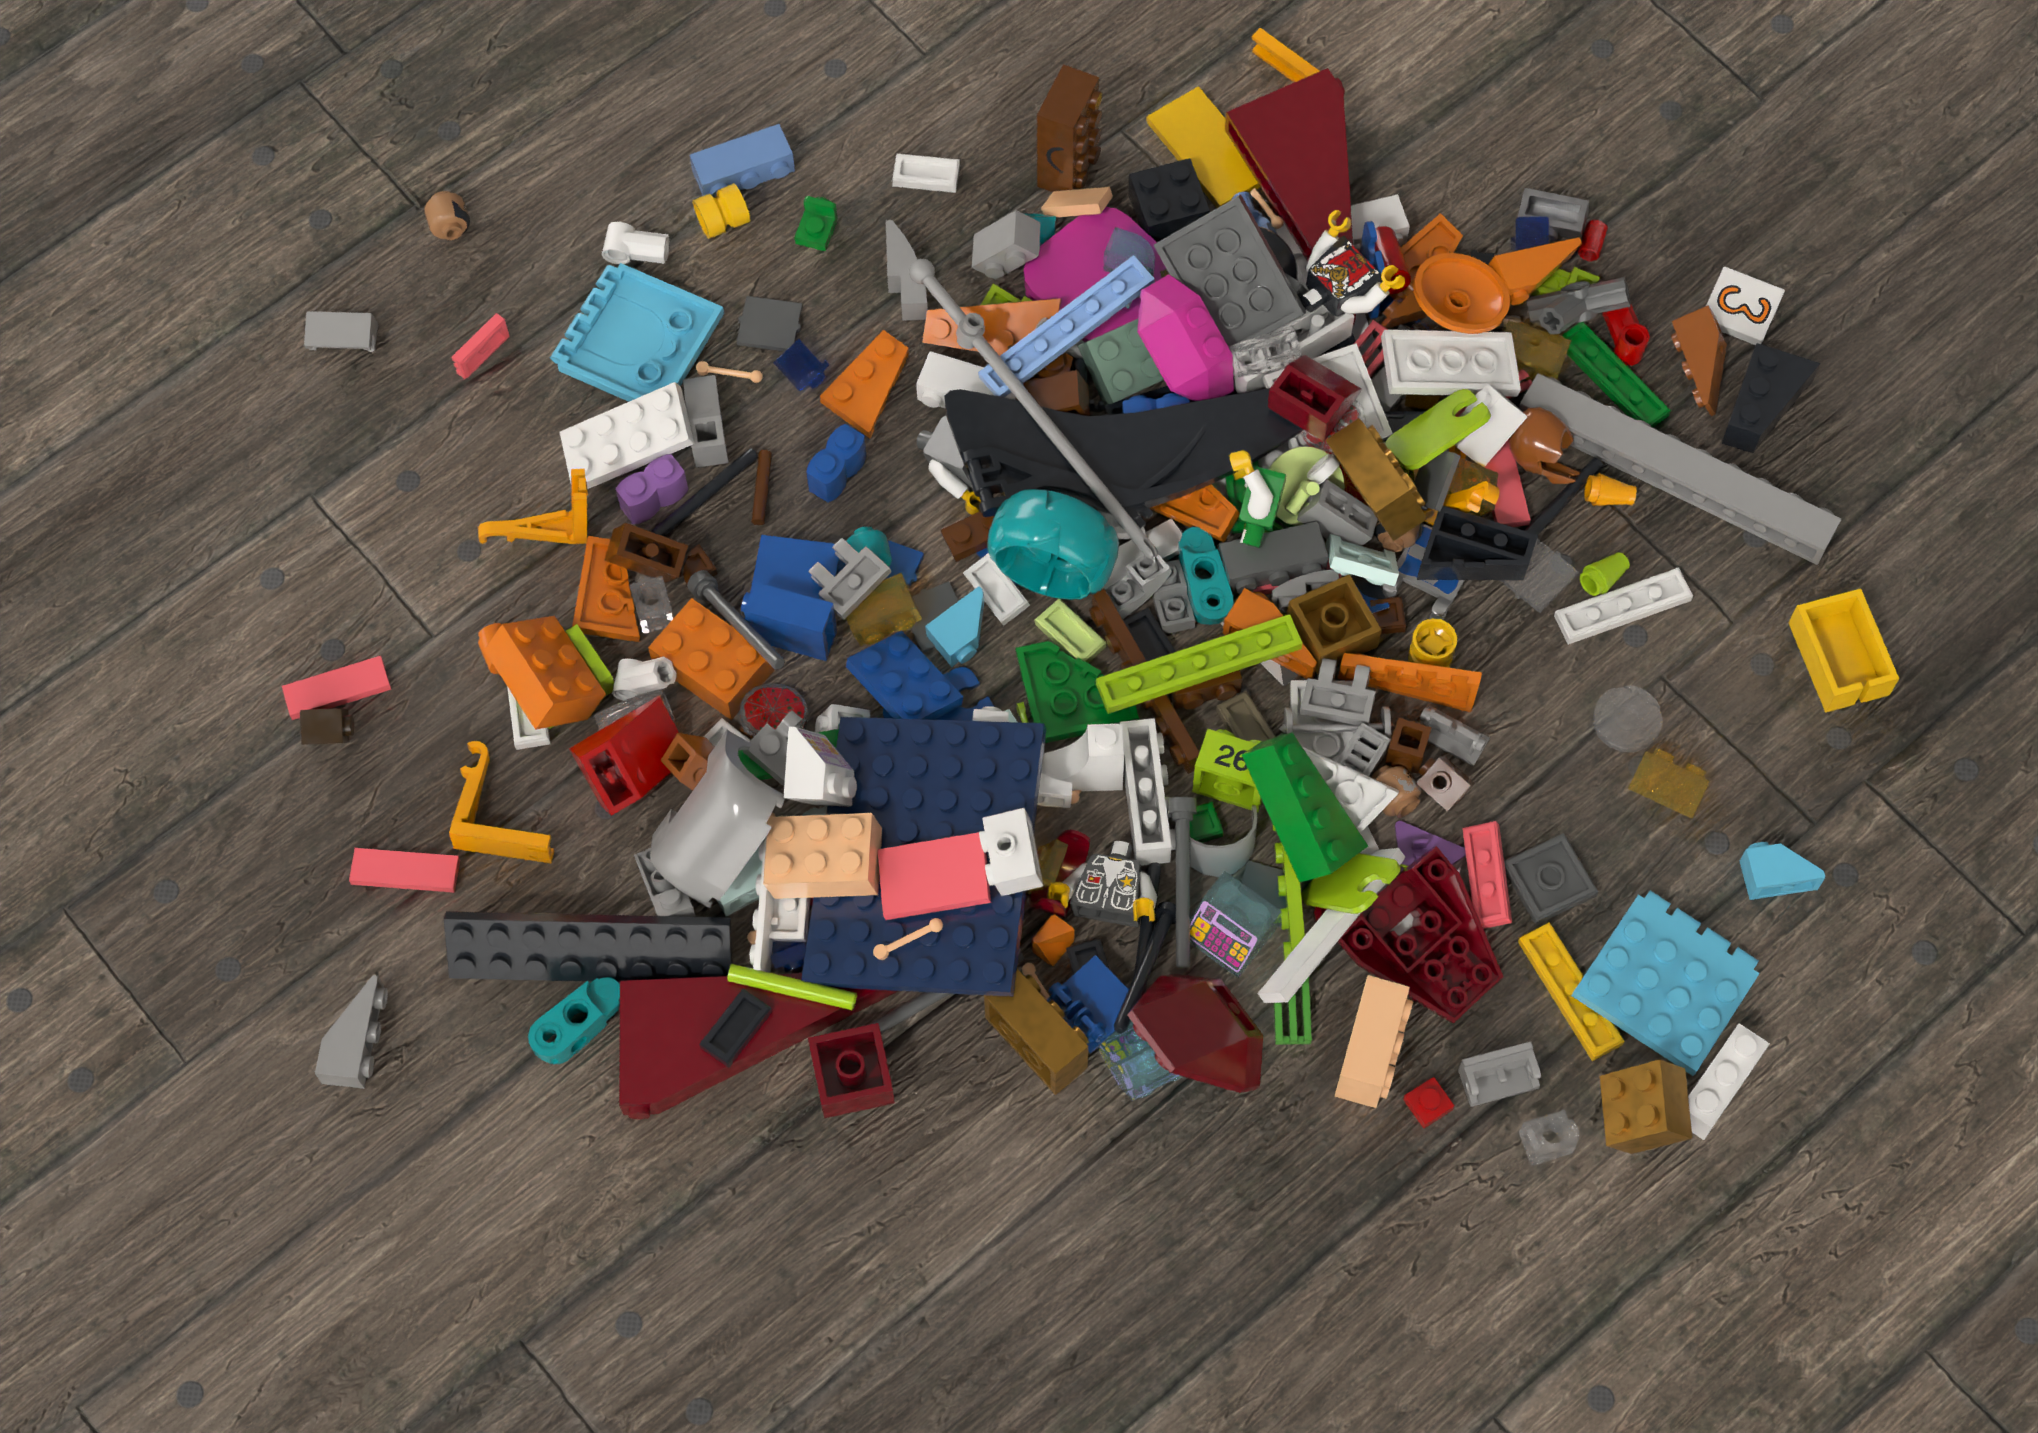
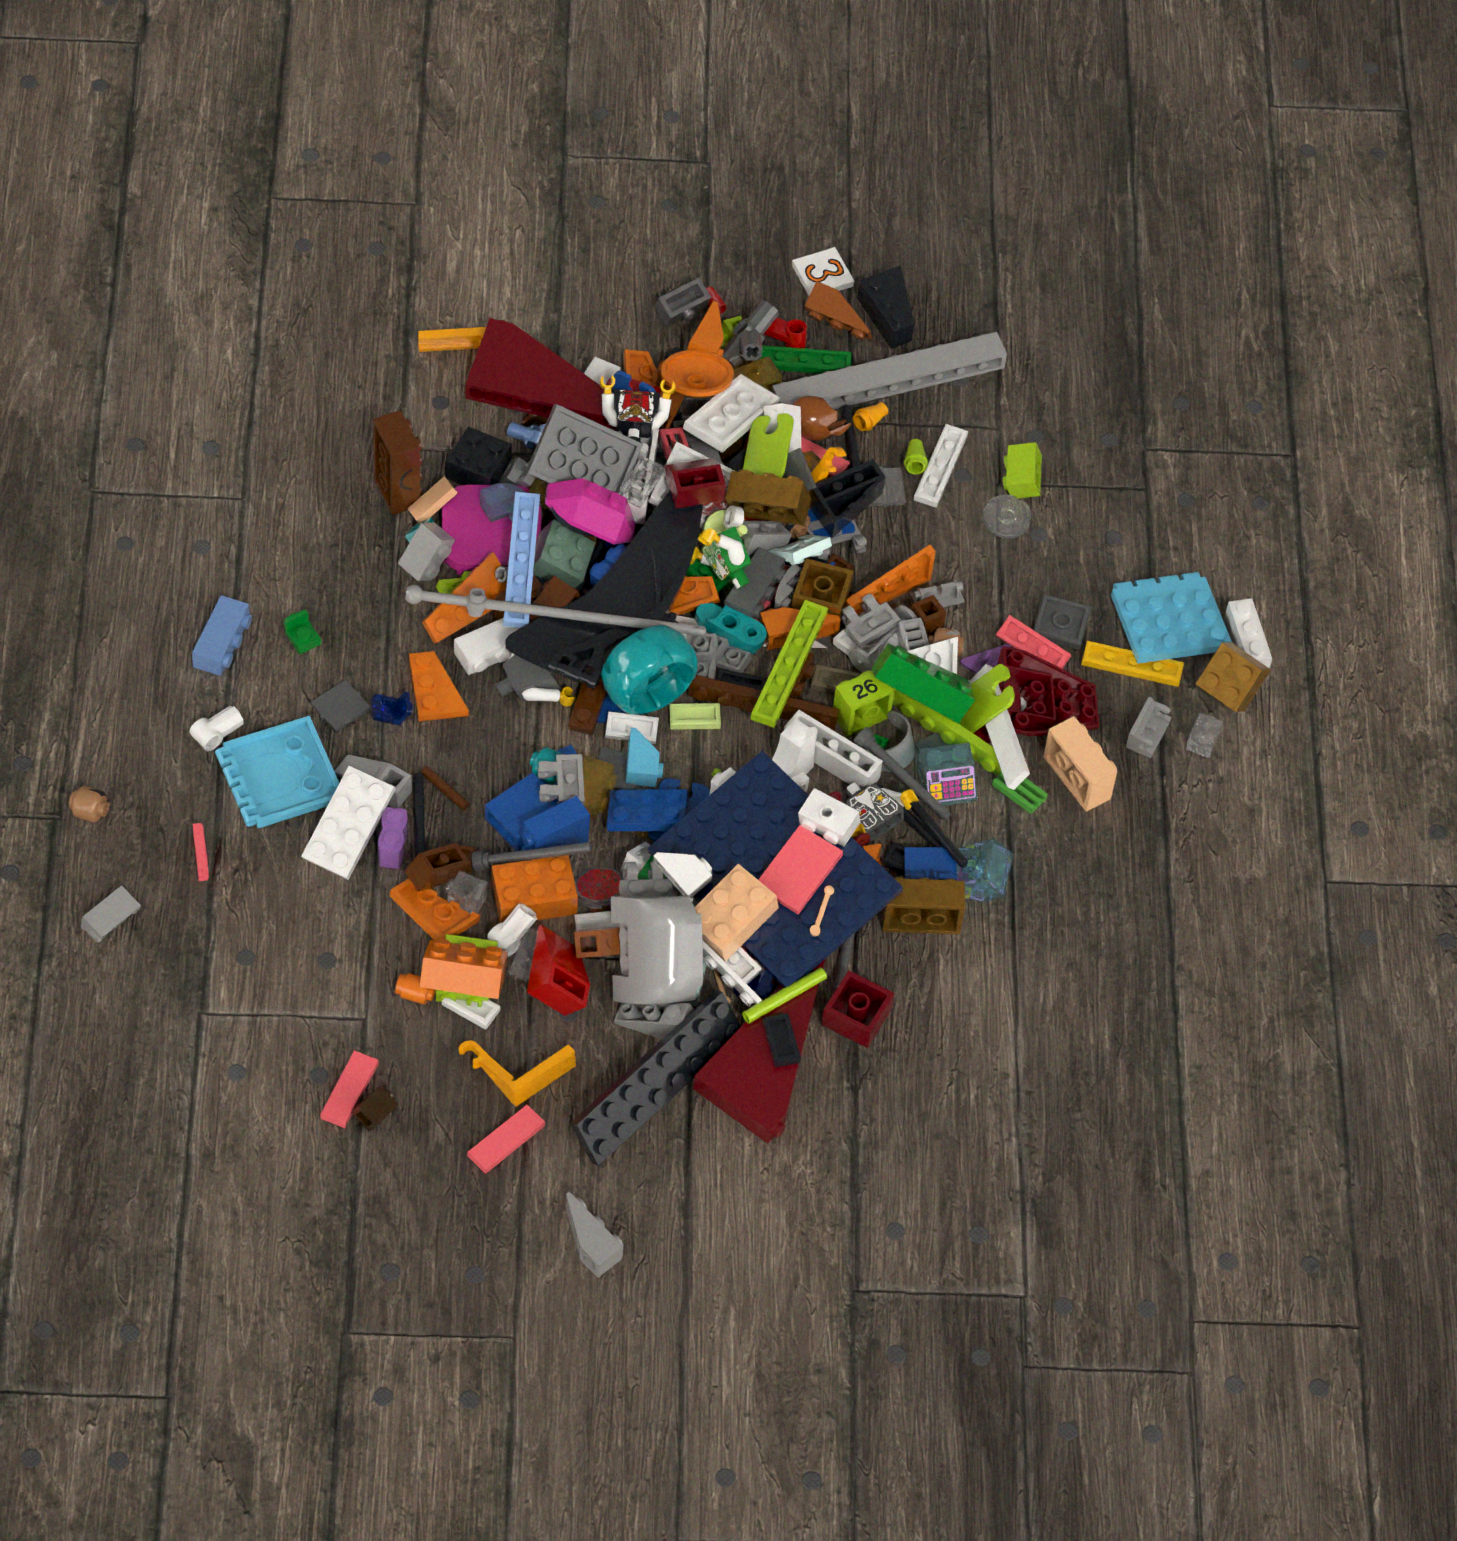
camera: 55 degrees left, 10 degrees down
(556, 526) = (369, 897): light orange hinge -> none
(597, 999) = (692, 1102): teal piece -> none
(703, 369) = (334, 758): light nougat hinge -> none
(722, 210) = (244, 668): yellow wheel -> none
(838, 461) = (473, 738): blue brick -> none
(899, 259) = (384, 615): light grey slope -> none
(926, 173) = (325, 557): white tile -> none
(1064, 692) = (730, 742): green plate -> none
(1197, 131) = (451, 415): yellow tile -> none
(1200, 1031) = (998, 824): dark red wedge -> none
(1276, 221) = (529, 420): light nougat hinge -> none
(1428, 1102) = (1132, 772): red plate -> none
(1433, 643) = (881, 558): yellow wheel -> none
(1457, 782) = (965, 618): brick -> none
(1530, 232) = (687, 320): clear blue bracket -> none
(1670, 783) = (1063, 527): clear yellow bracket -> none
(1695, 686) = (1023, 470): none -> lime brick
(1777, 871) = (1158, 523): medium azure slope -> none
(1843, 650) = (1069, 393): yellow piece -> none

